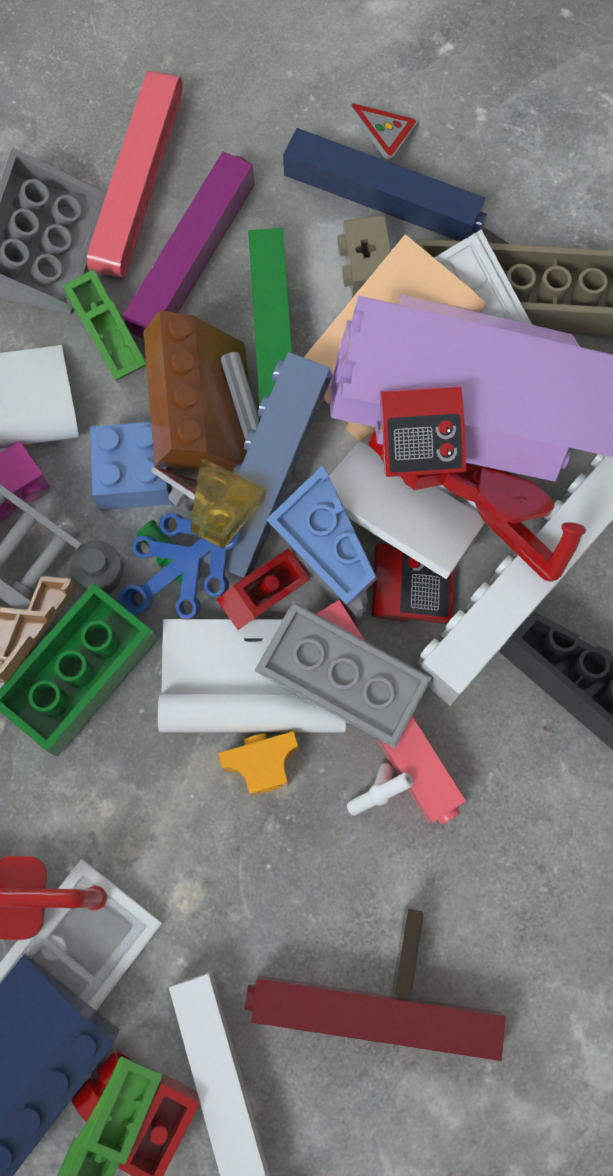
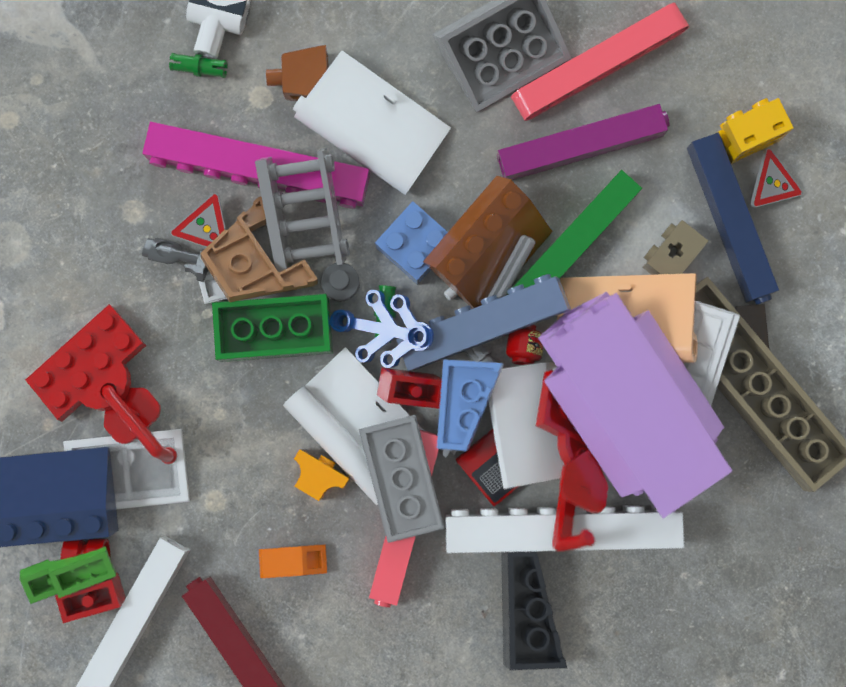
camera: 50 degrees right, 10 degrees up
(104, 324) = (484, 142): bright green slope -> none
(183, 487) = (429, 292): light grey piece -> none
(222, 503) = (433, 323): clear yellow wing -> none
(322, 870) = (292, 561): none -> orange slope
(324, 94) = (755, 129): none -> yellow piece
(324, 448) = (524, 346): none -> red head
(381, 791) = (362, 555): white piece -> none
(407, 952) = (291, 644): dark brown tile -> none
(423, 431) = (569, 403): slope -> none

